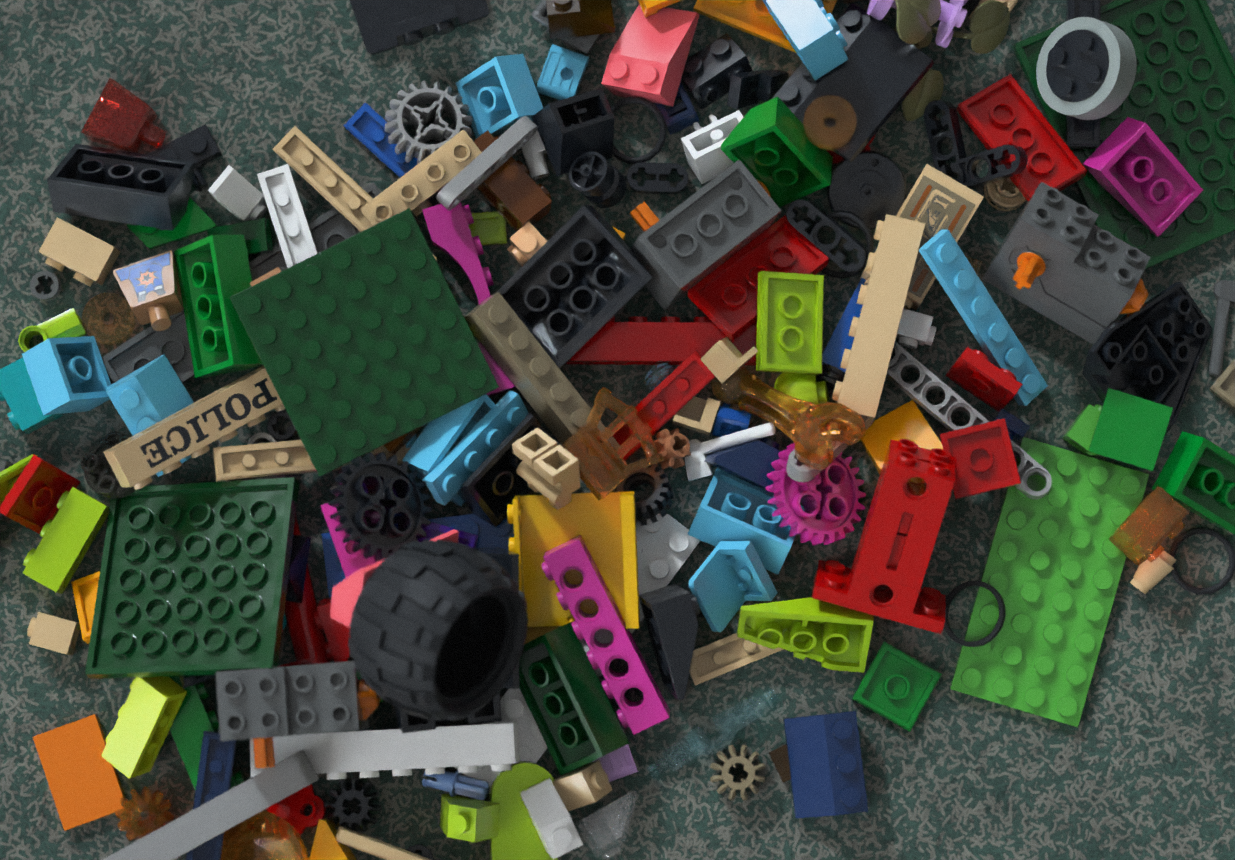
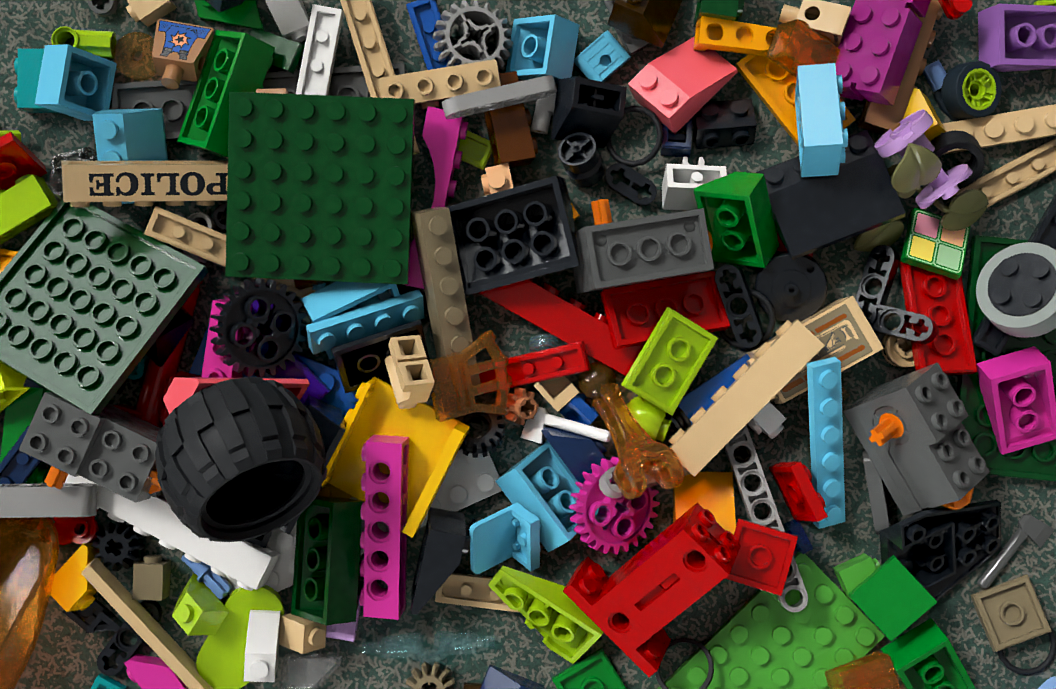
camera: 25 degrees right, 5 degrees up
(403, 819) = (151, 578): none -> dark tan brick
(726, 359) = (602, 362): tan panel -> none
(752, 86) = (748, 153): black slope -> none
(829, 137) = (803, 208): clear orange piece -> none
(980, 77) = (933, 246): none -> tile
(1061, 341) = (877, 495): none -> dark grey beam

